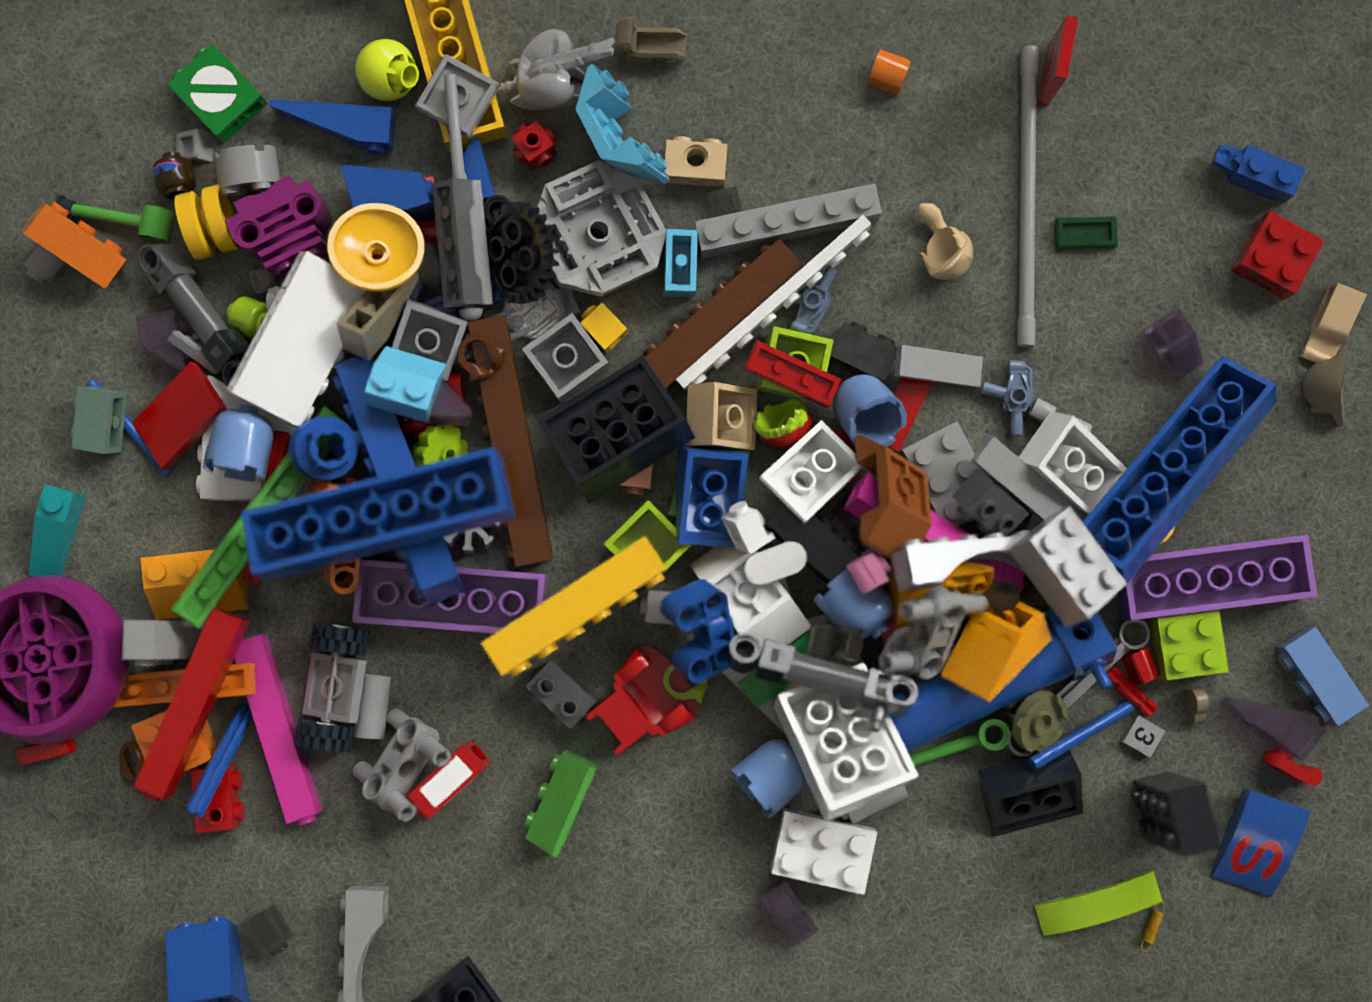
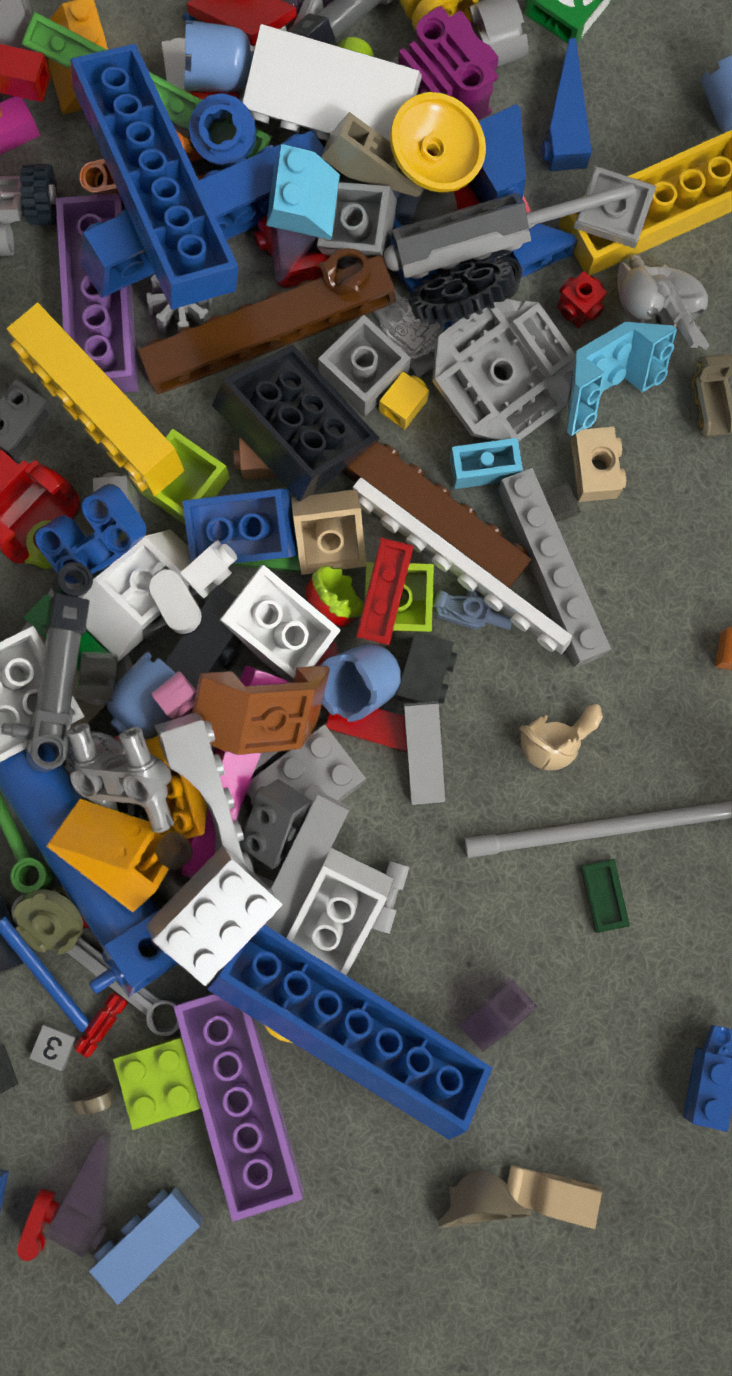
camera: 75 degrees right, 5 degrees down
(386, 70) = (628, 141): neon yellow brick -> none
(438, 444) = (252, 256): lime plant -> none
(1016, 396) = (408, 845): sand blue piece -> none
(1140, 666) = (129, 1032): red brick -> none
(1277, 255) = (621, 1118): red brick -> none

